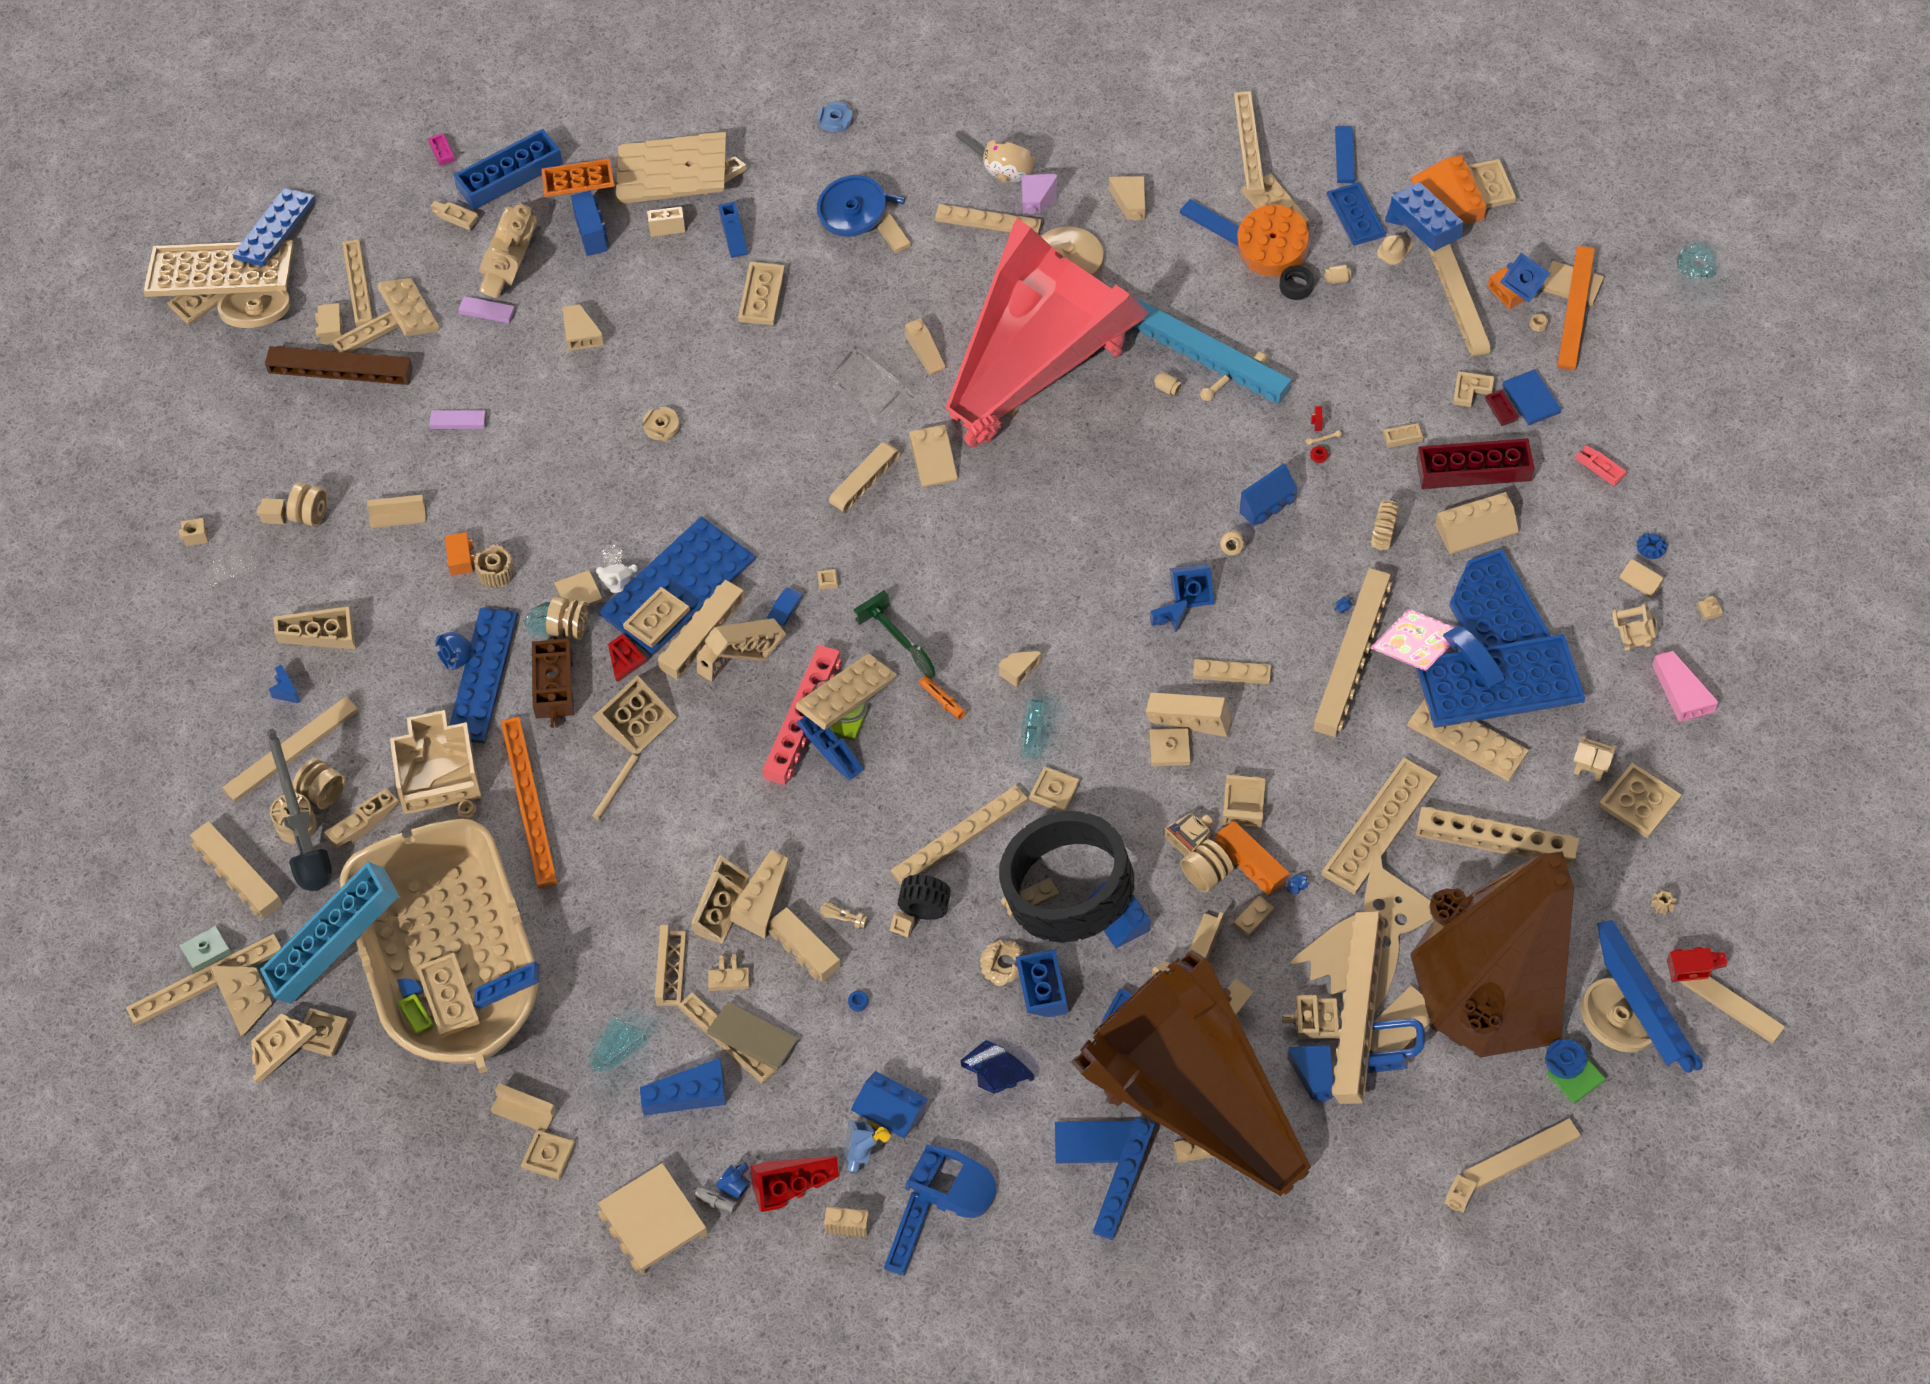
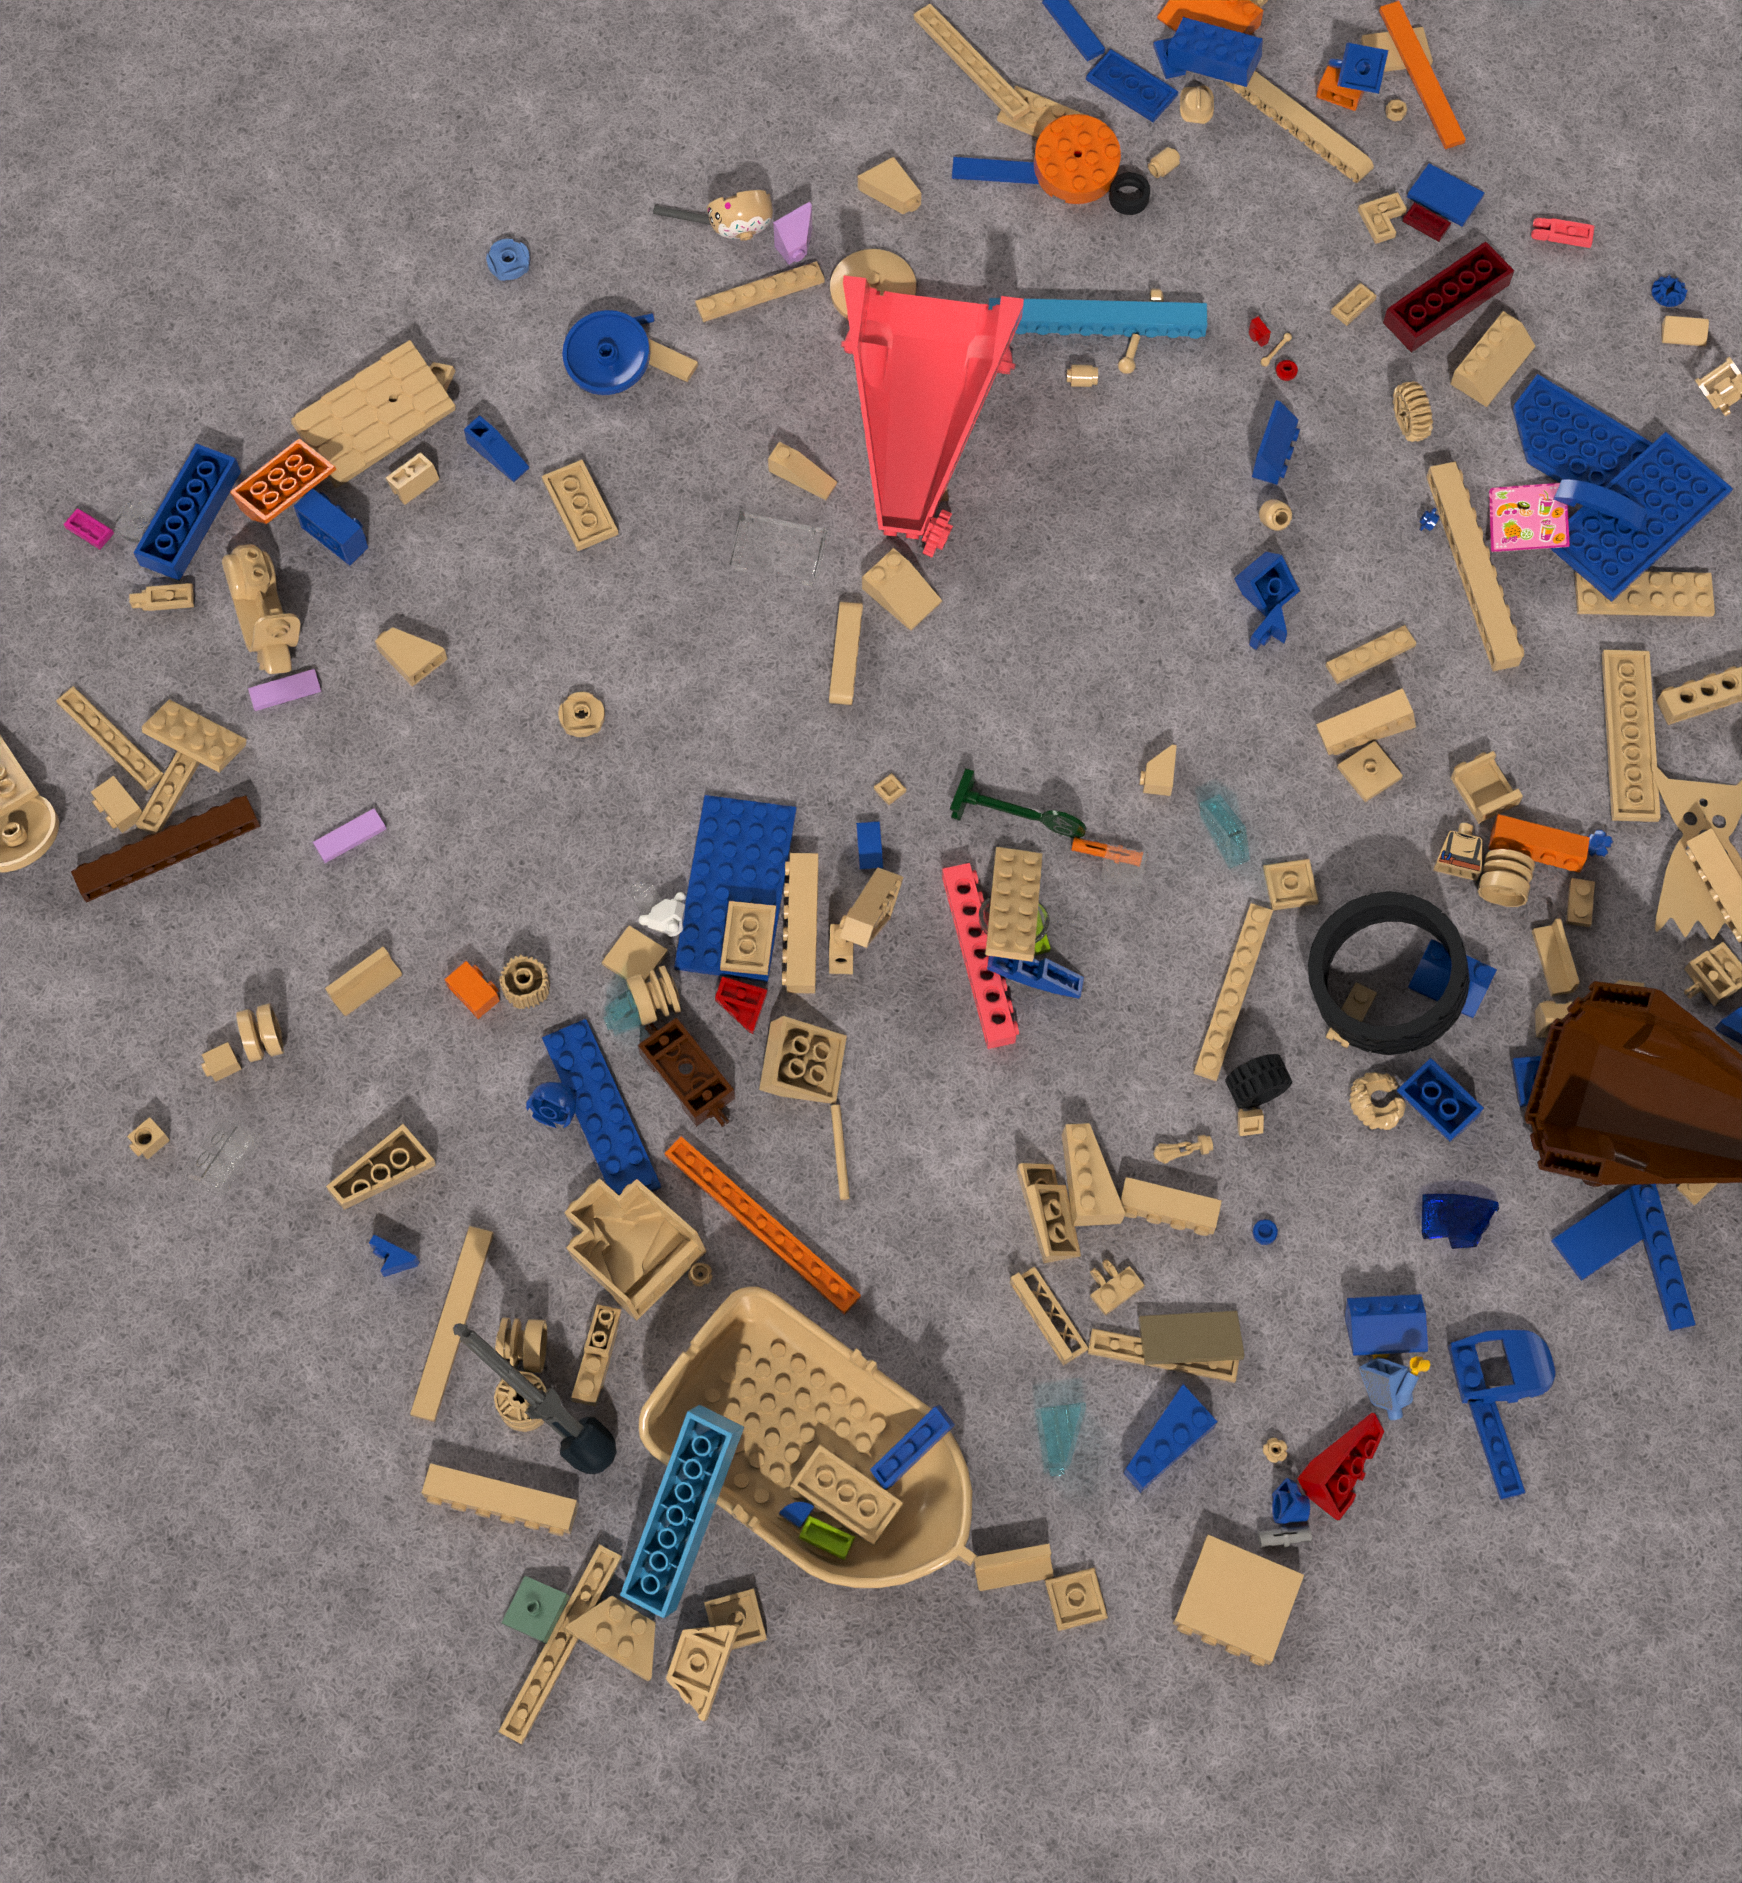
camera: 35 degrees left, 10 degrees up
(753, 1137) = (1275, 1456): none -> tan plate
(846, 1221) = (1433, 1475): tan brick -> none
(945, 712) = (1124, 866): none -> clear piece

